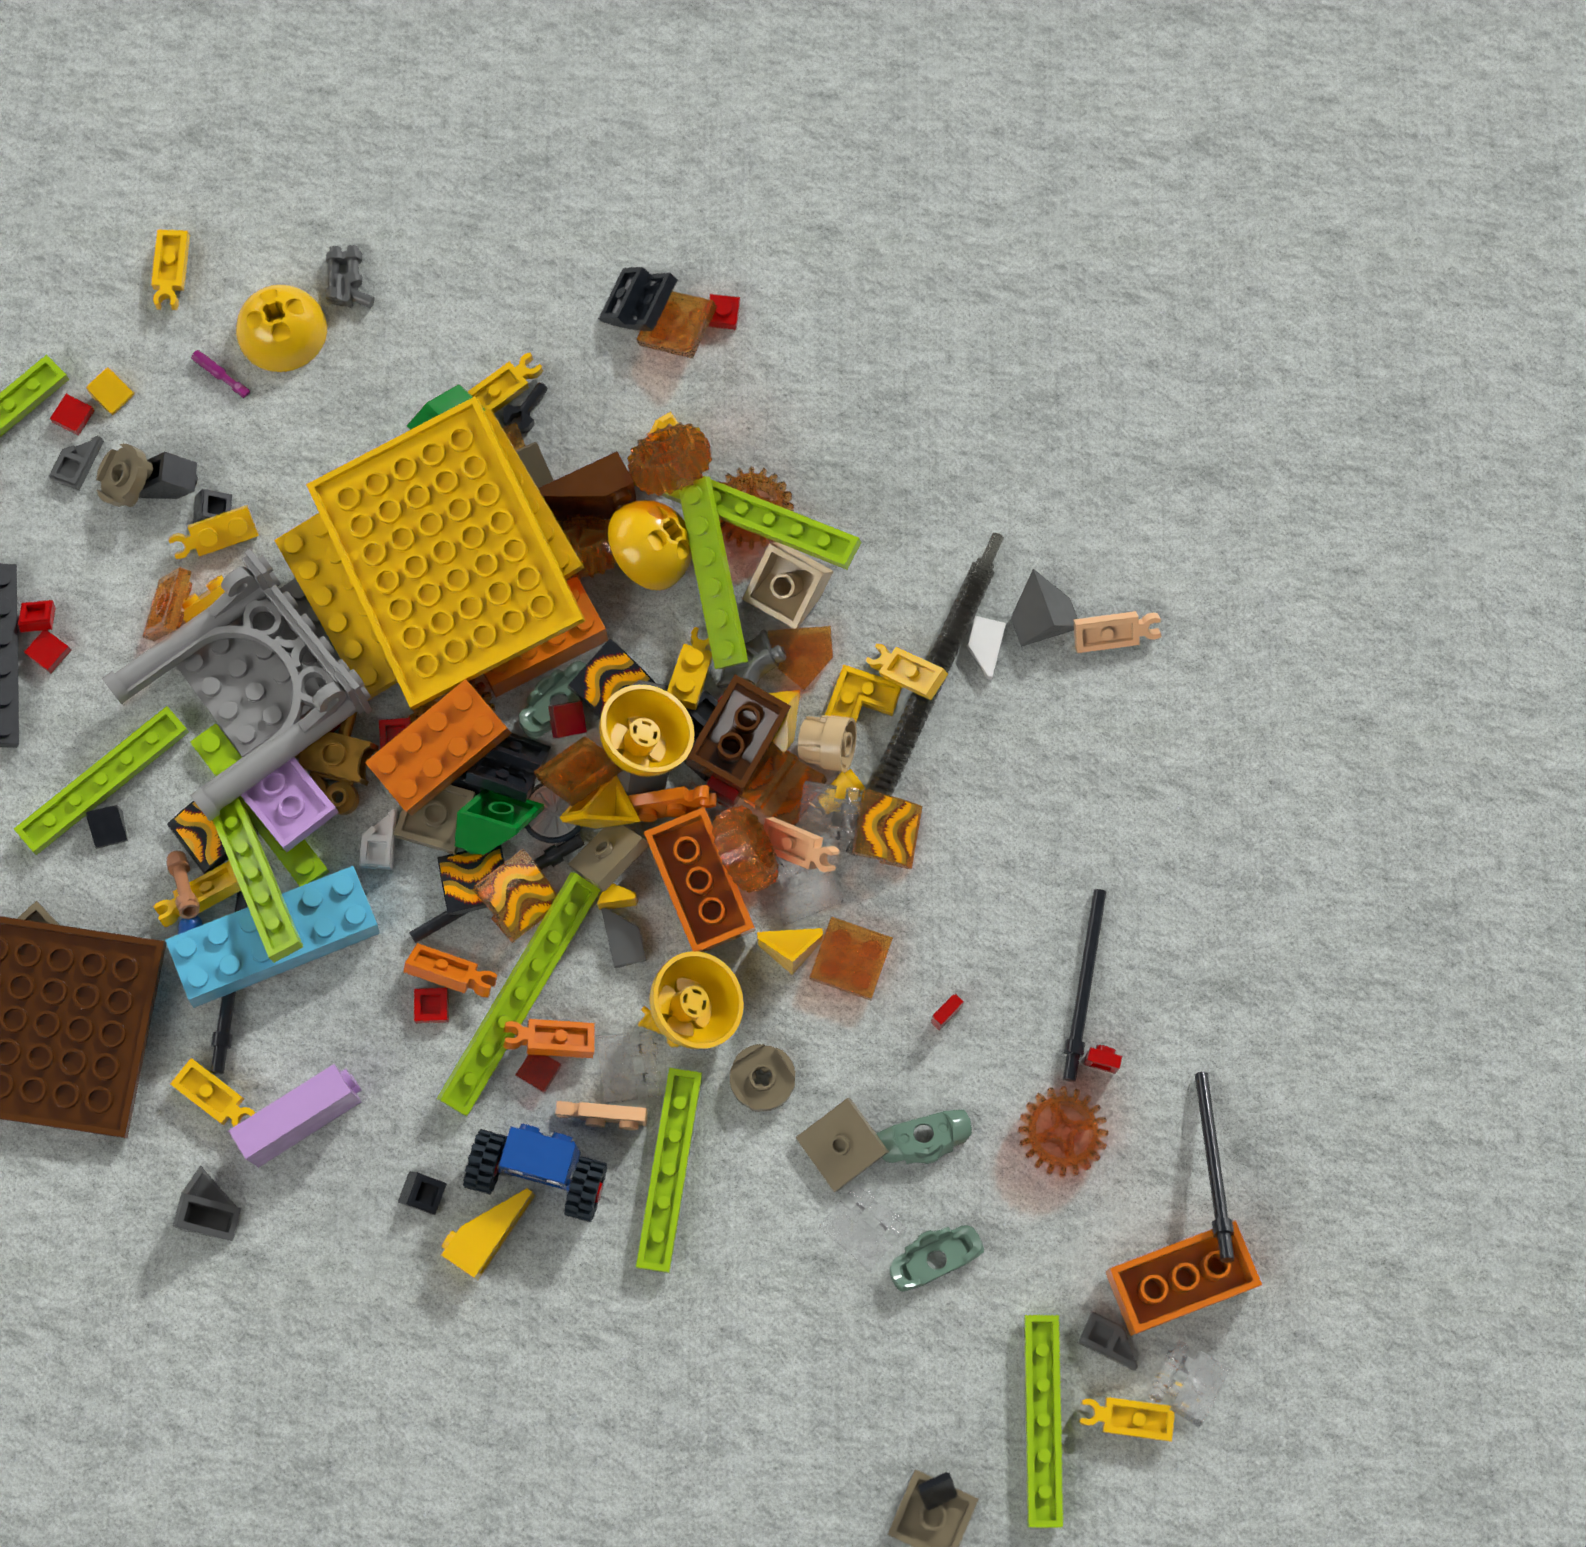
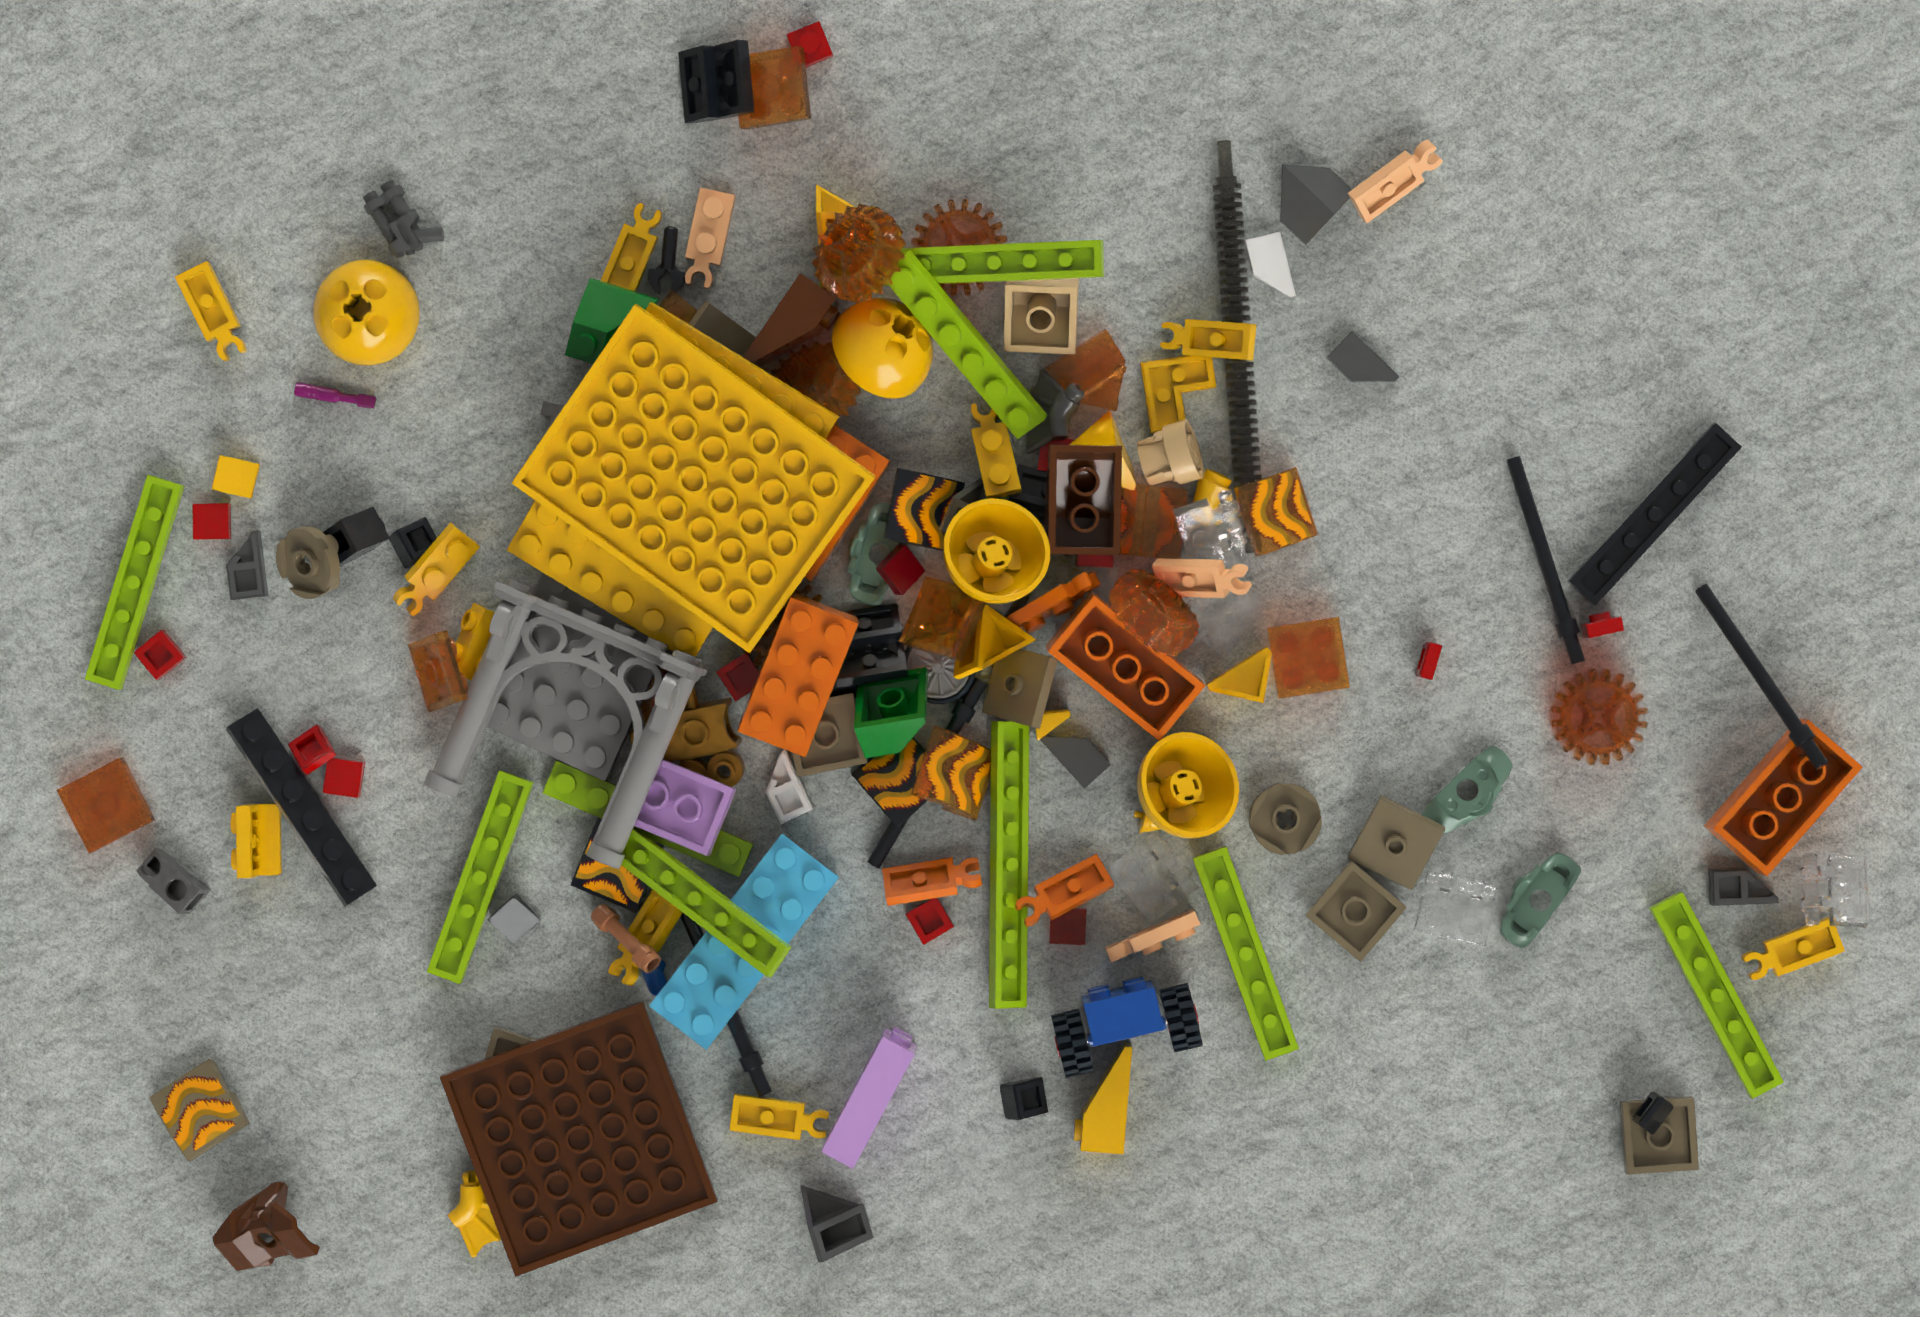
camera: 30 degrees left, 15 degrees up
(568, 404) = (708, 233): none -> light nougat plate
(778, 1184) = (1355, 911): none -> dark tan plate
(1016, 753) = (1359, 362): none -> dark grey tile
(1191, 993) = (1654, 514): none -> black plate

